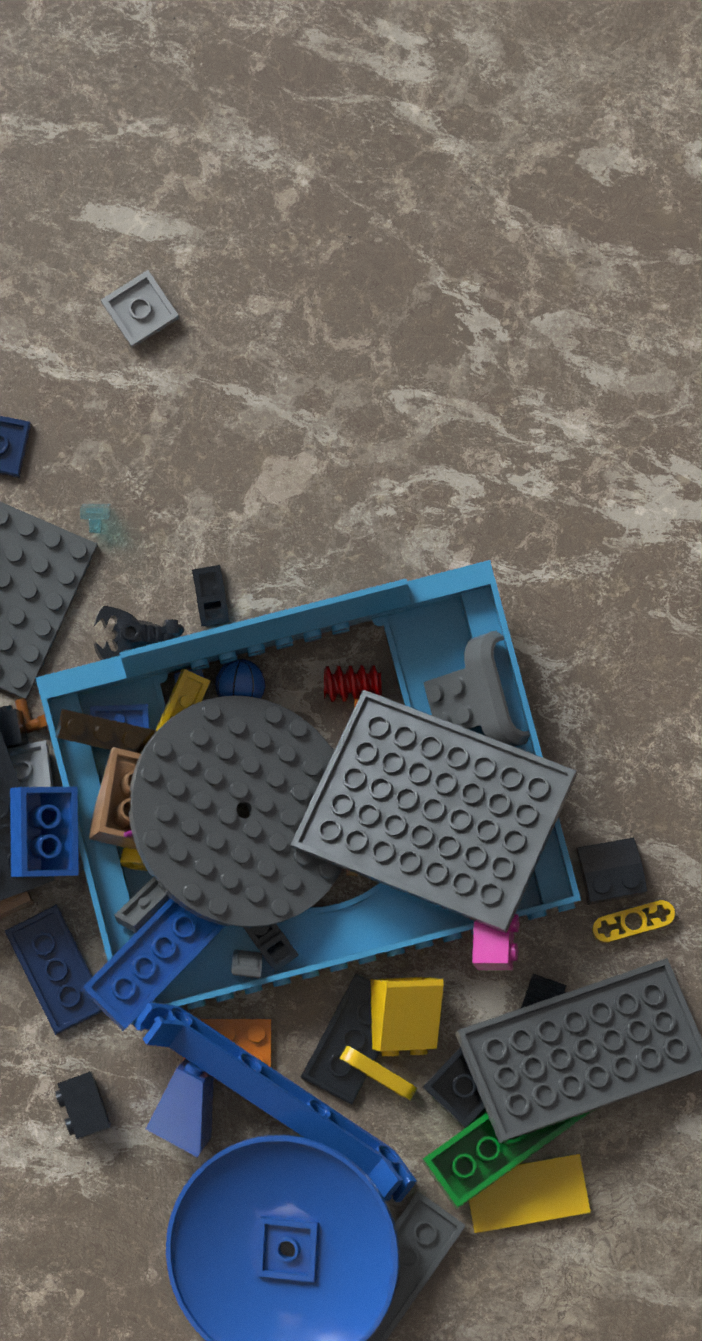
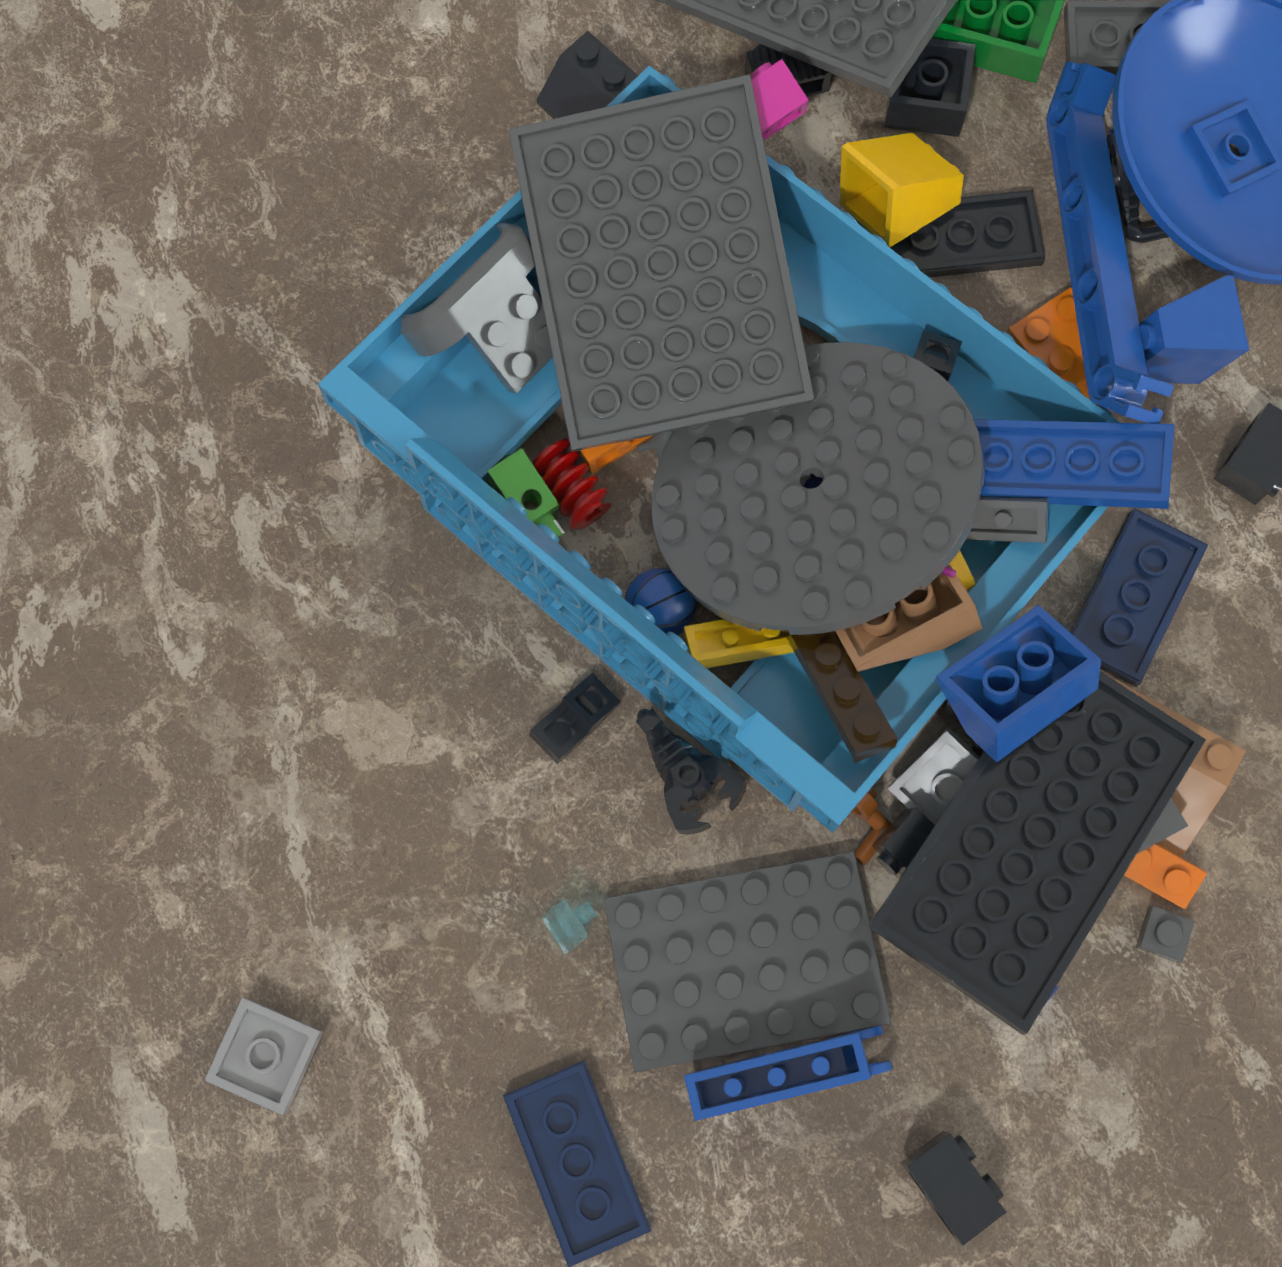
camera: 120 degrees left, 5 degrees down
(131, 714) = (801, 703): blue plate -> none
(246, 963) = (981, 369): dark grey slope -> none
(370, 650) = (520, 480): none -> bright green torso
(378, 1073) = (982, 177): yellow beam -> none
(614, 934) = (621, 30): yellow beam -> none

